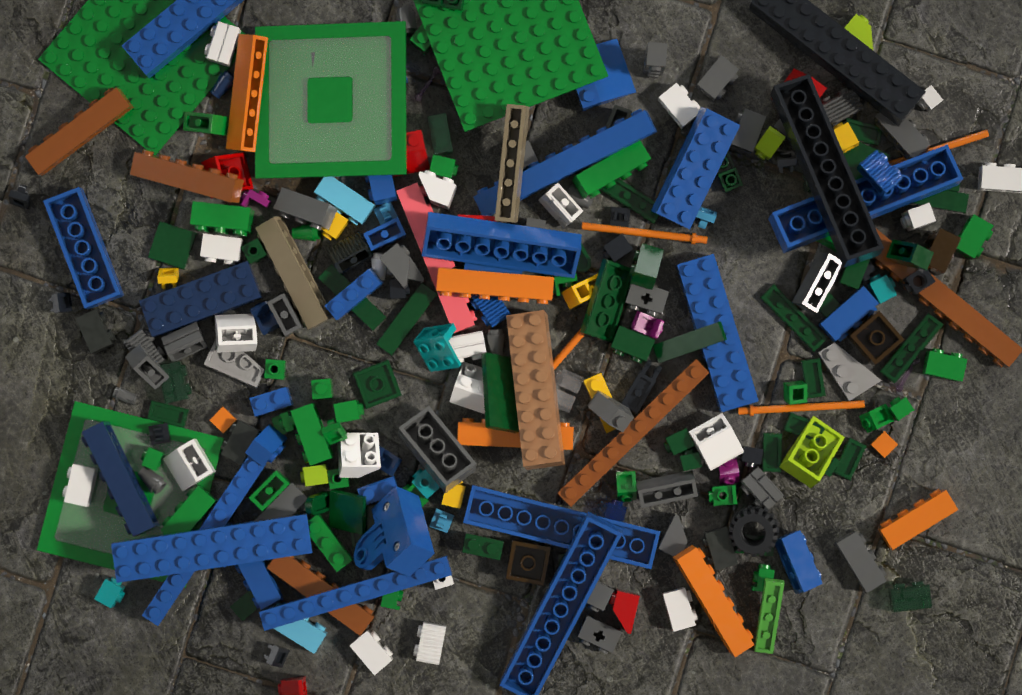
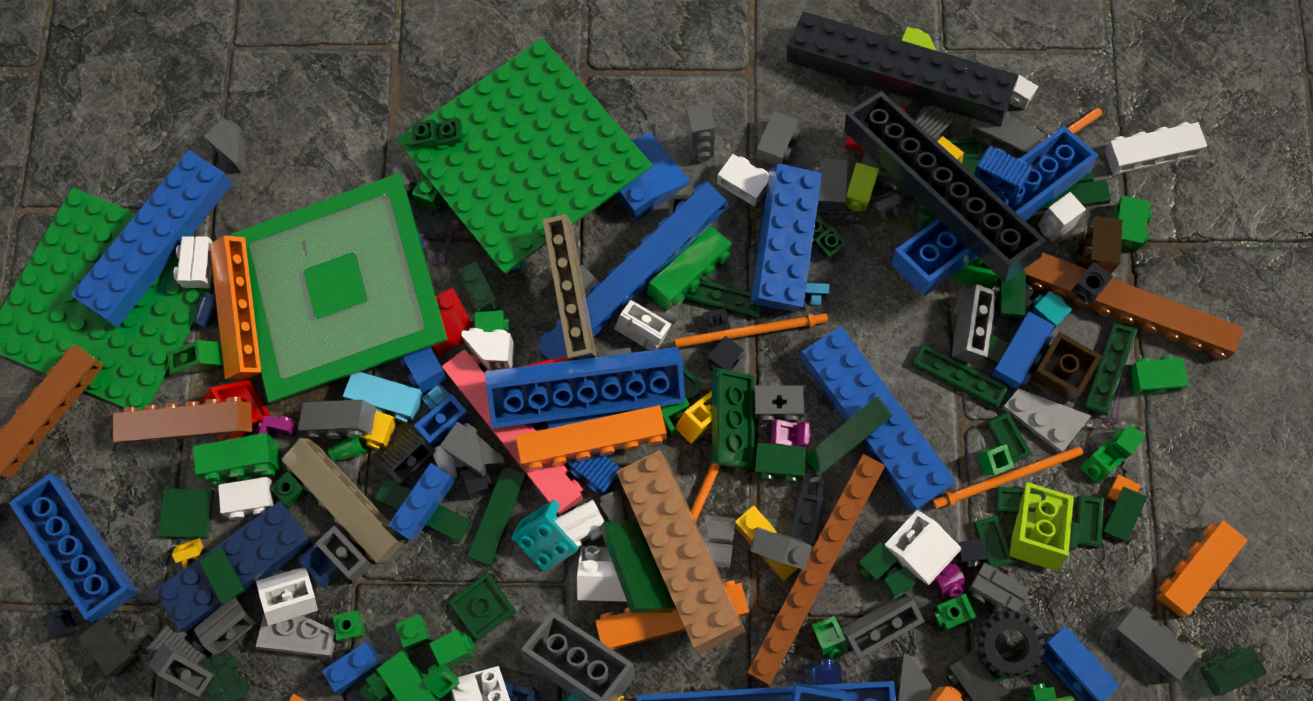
camera: 15 degrees left, 15 degrees down
(192, 306) = (222, 576): none -> dark green tile
(646, 267) = (766, 365): dark green brick -> none
(877, 462) = (1125, 513): none -> dark green tile
(909, 254) = (1072, 254): dark green brick -> none

